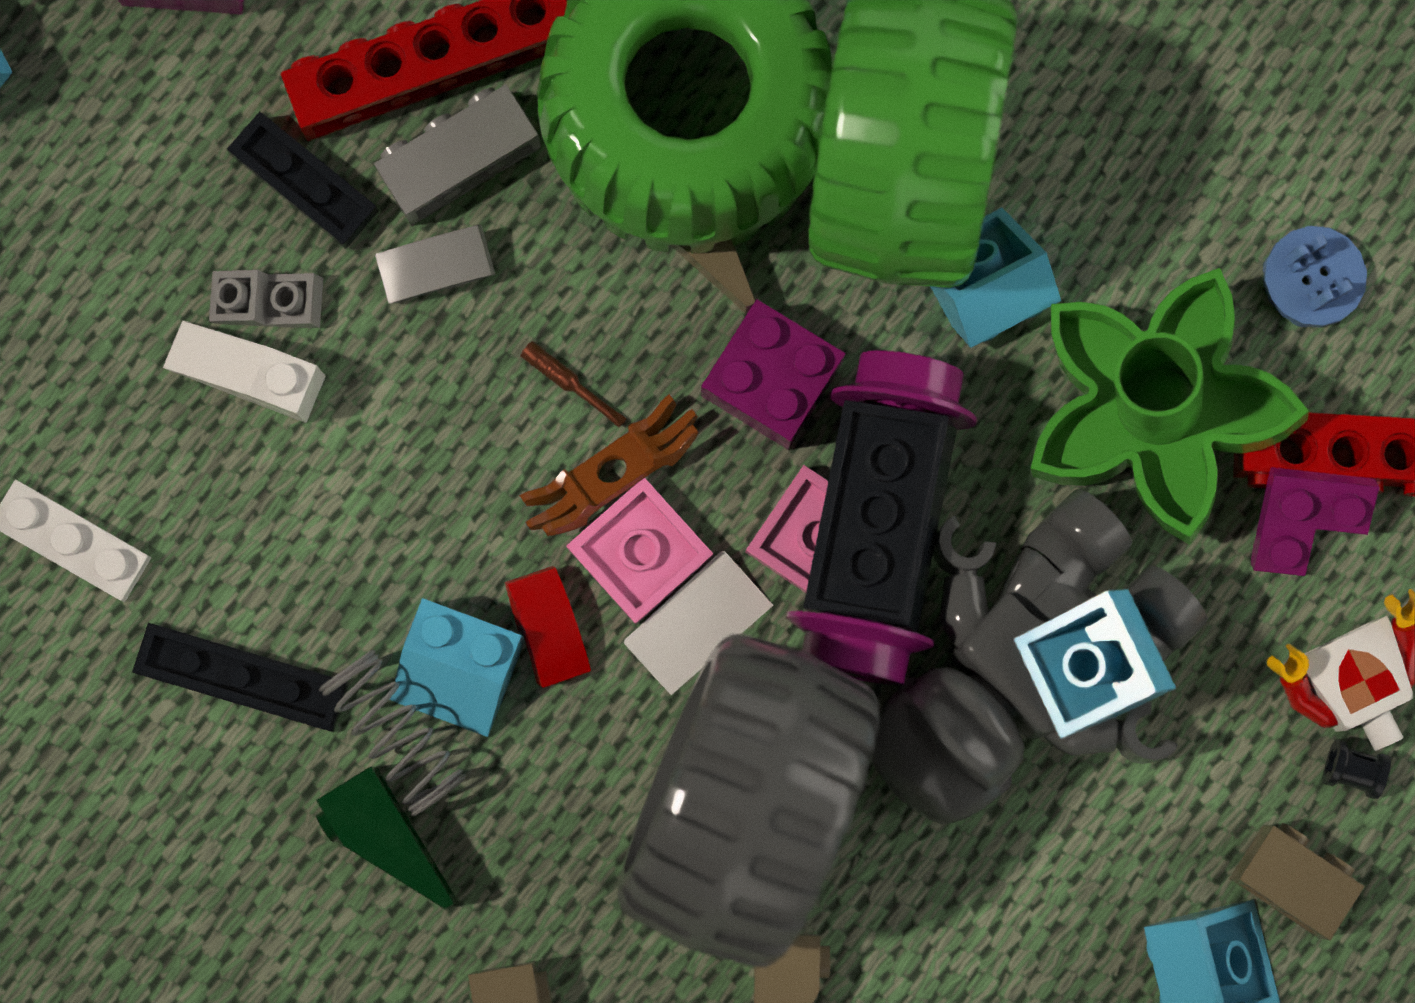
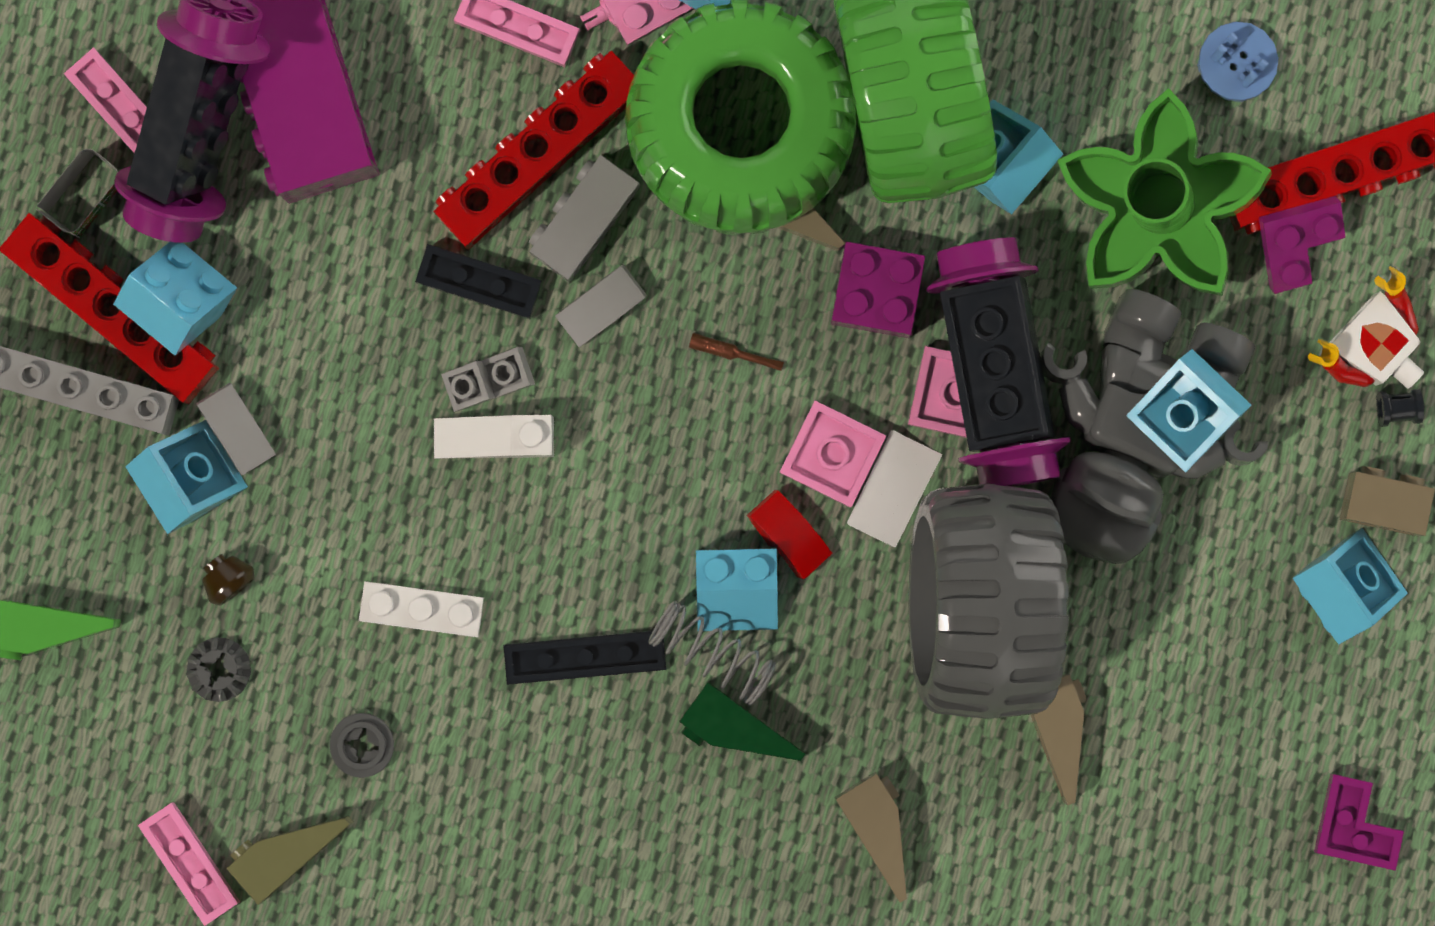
camera: 20 degrees left, 5 degrees up
(635, 448) = (801, 381): dark orange piece -> none

